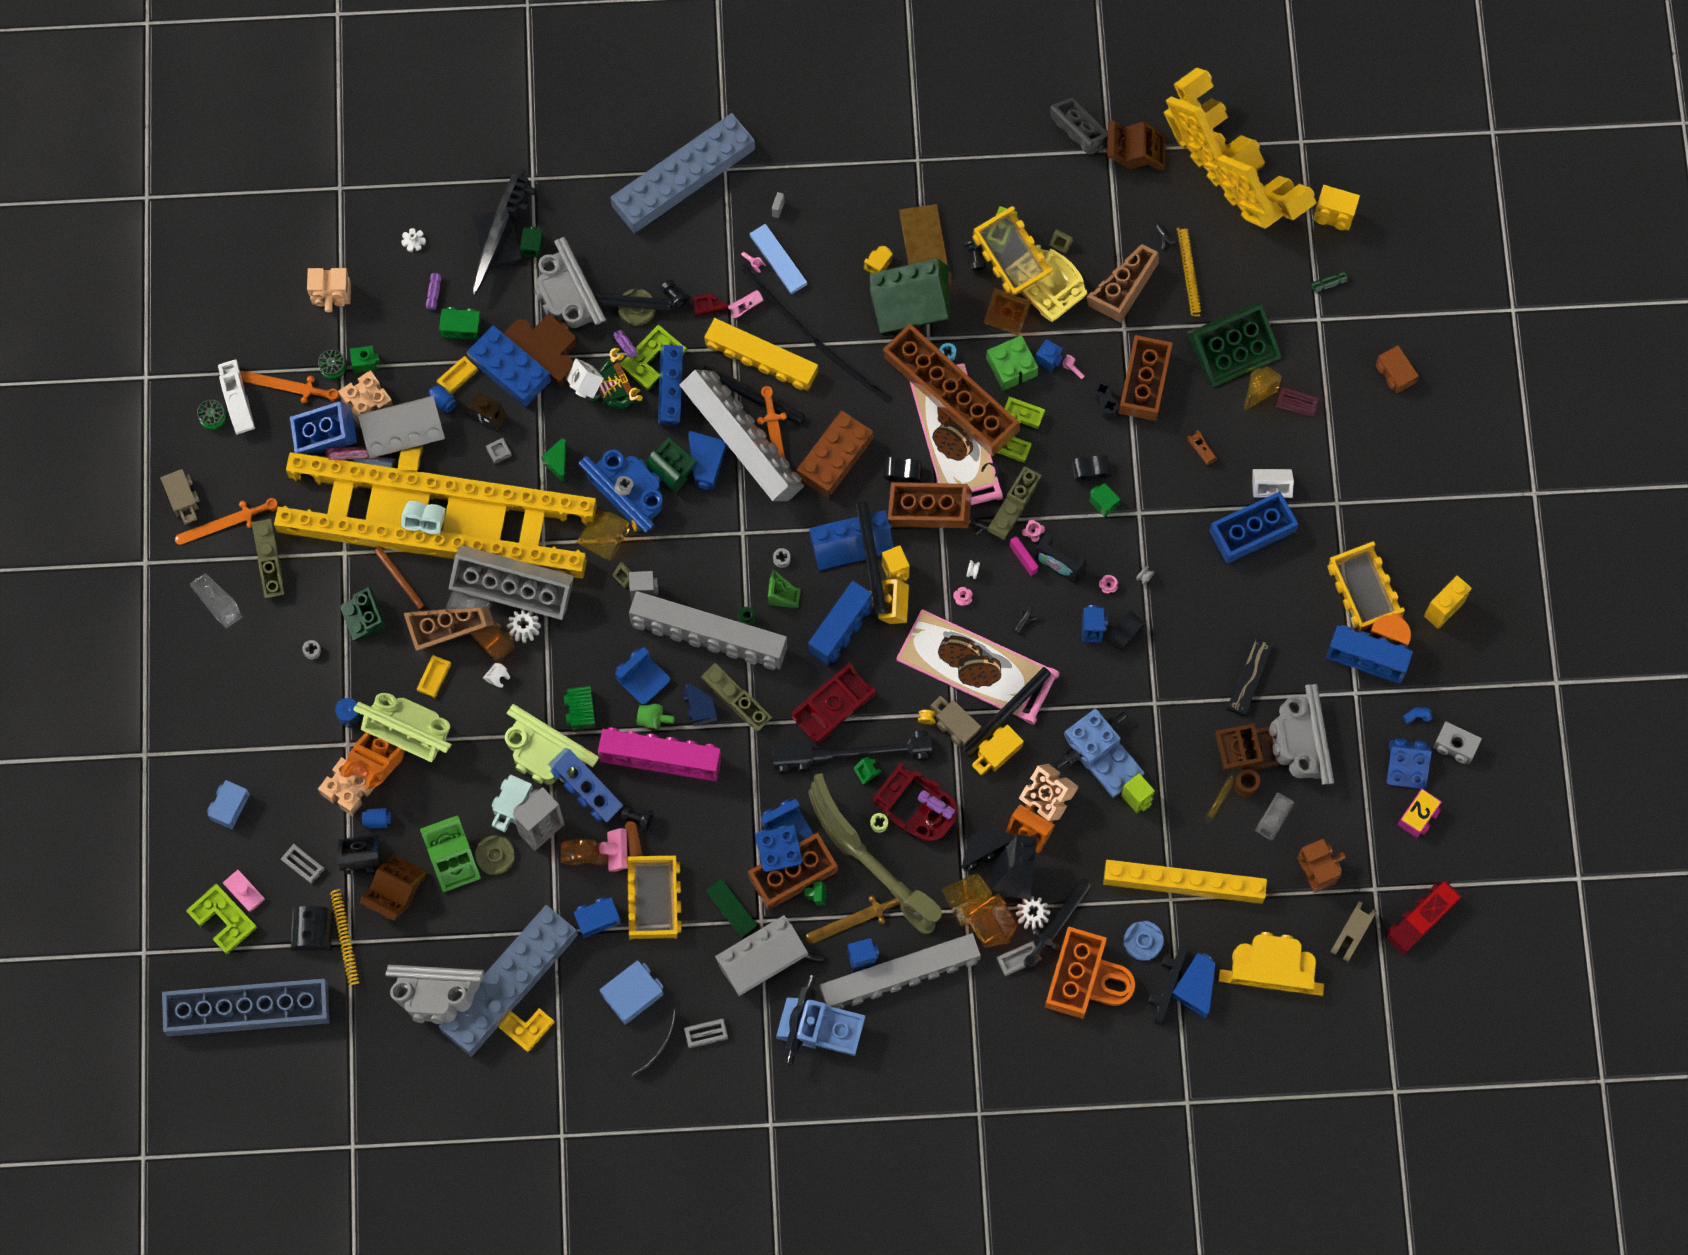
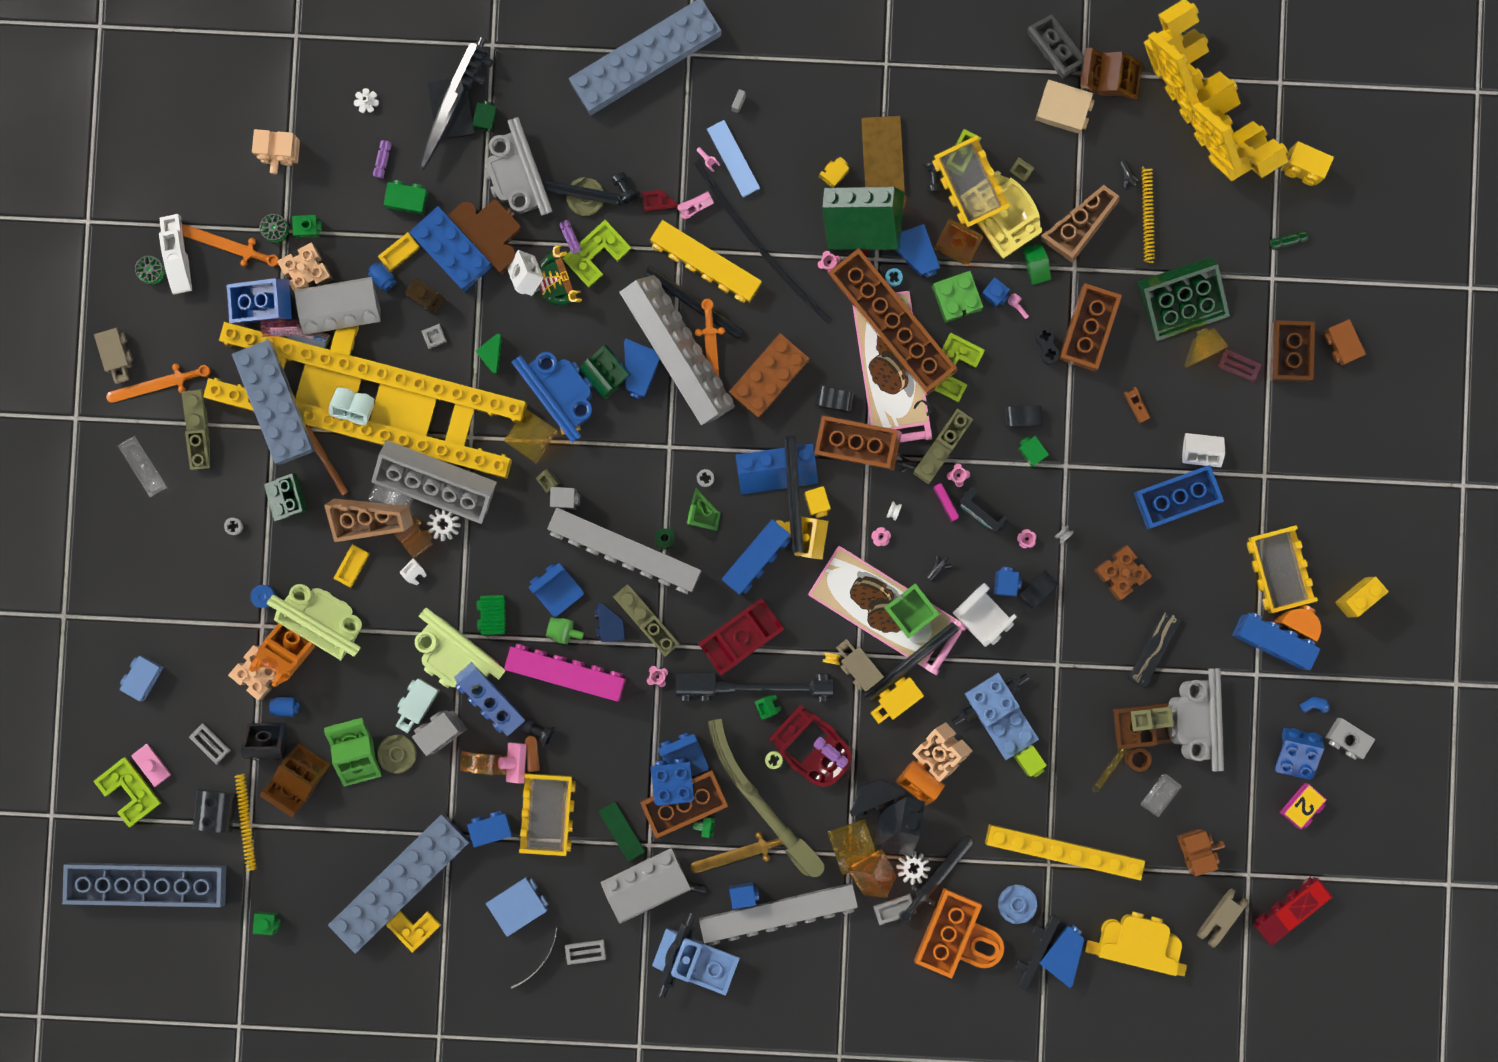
camera: 10 degrees right, 15 degrees up
(346, 519) = (273, 402): none -> sand blue brick
(374, 1034) = (266, 923): none -> green brick
(434, 992) = (324, 892): light grey brick -> none
(622, 490) = (558, 387): light grey bush -> none
(669, 385) = (610, 286): blue brick -> none
(752, 748) = (652, 677): none -> bright pink plate
(878, 340) = (828, 257): none -> bright pink plate
(968, 325) = (918, 251): none -> blue slope
(1003, 660) = (911, 611): none -> bright green piece
(1073, 660) = (983, 616): none -> white panel
(1087, 326) = (1037, 263): none -> green slope
(1095, 180) = (1065, 107): none -> tan brick
(1208, 605) = (1122, 573): none -> dark orange brick
(1254, 734) = (1152, 718): none -> olive slope
(1347, 381) = (1292, 351): none -> reddish brown brick

